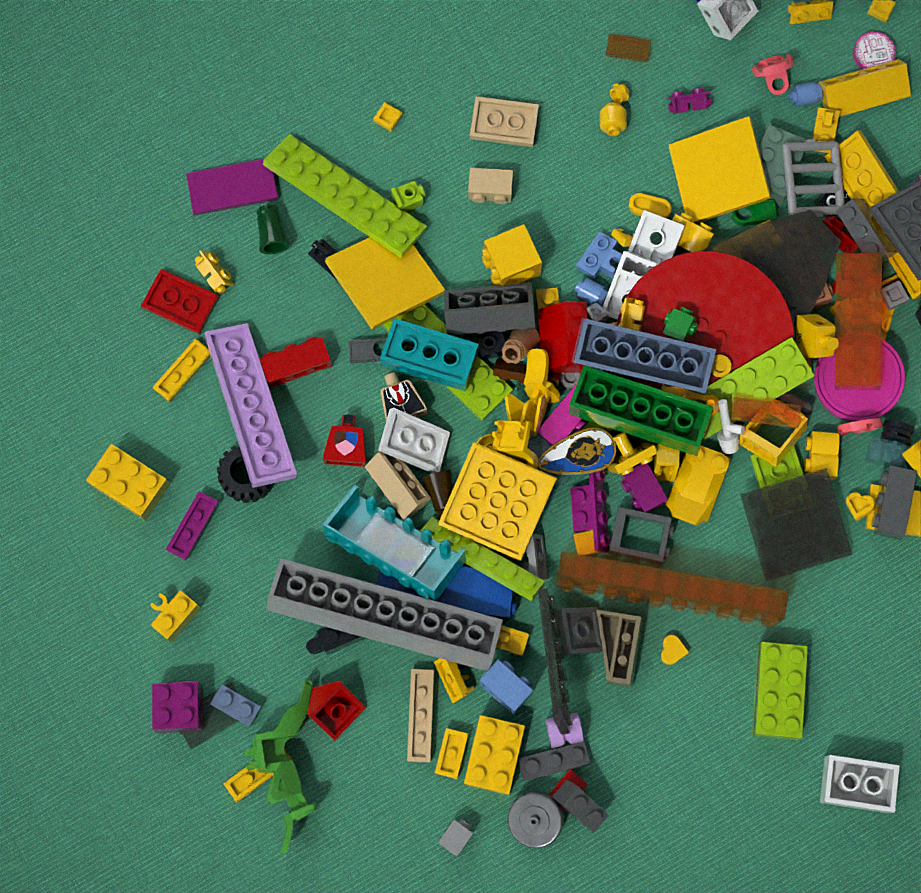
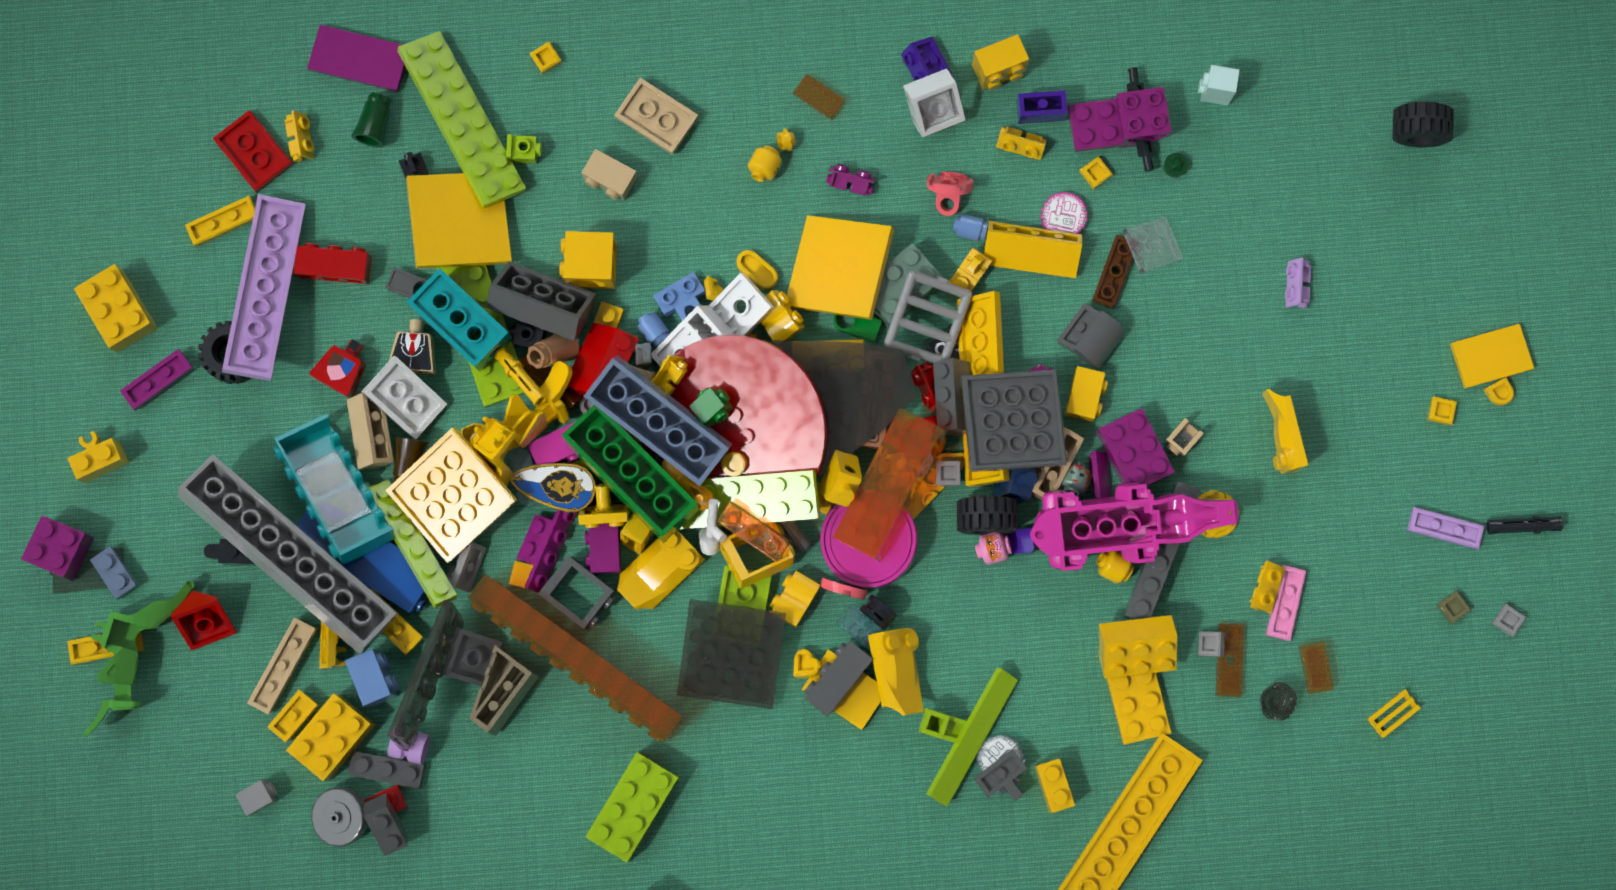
camera: 25 degrees right, 5 degrees up
(482, 370) = (514, 369): none -> yellow pin
(673, 650) = (554, 718): yellow tile -> none

